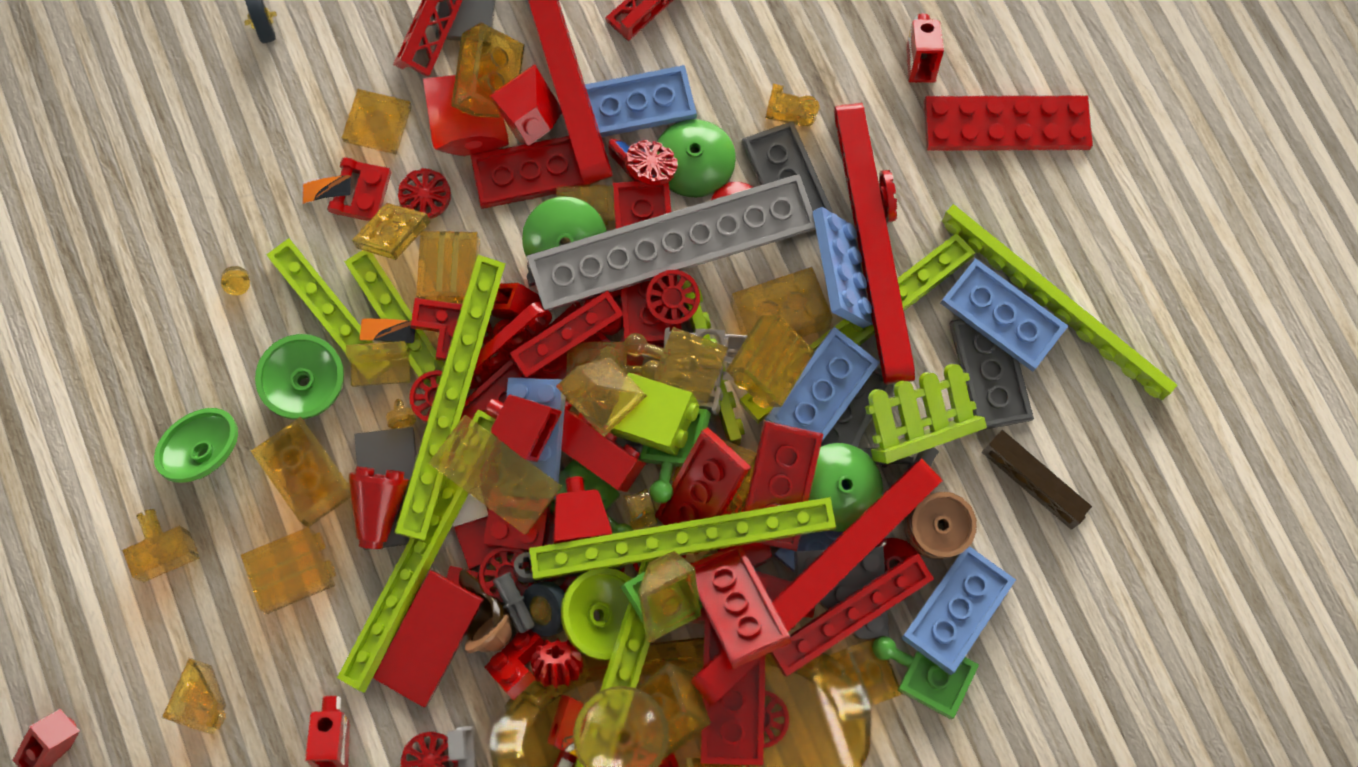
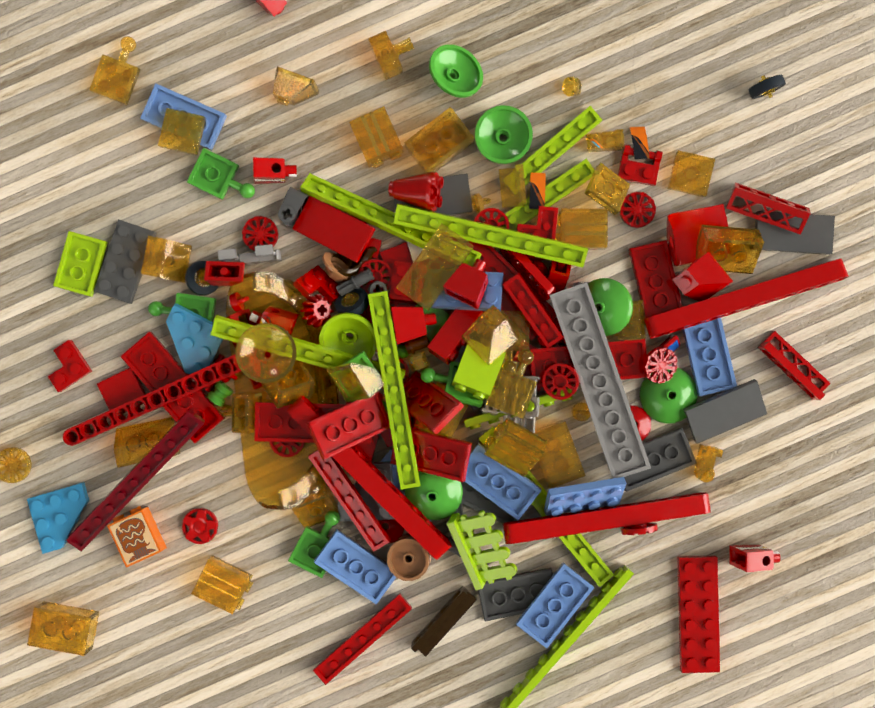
camera: 90 degrees right, 15 degrees up
(321, 234) = (605, 141): none -> clear yellow leg
(384, 704) = (292, 204): none -> dark grey piece
(613, 508) = (417, 344): none -> reddish brown pin
(718, 81) = (725, 411): none -> dark grey tile
(718, 276) = (580, 411): none -> clear yellow tile
(1071, 603) = (362, 638): none -> red plate

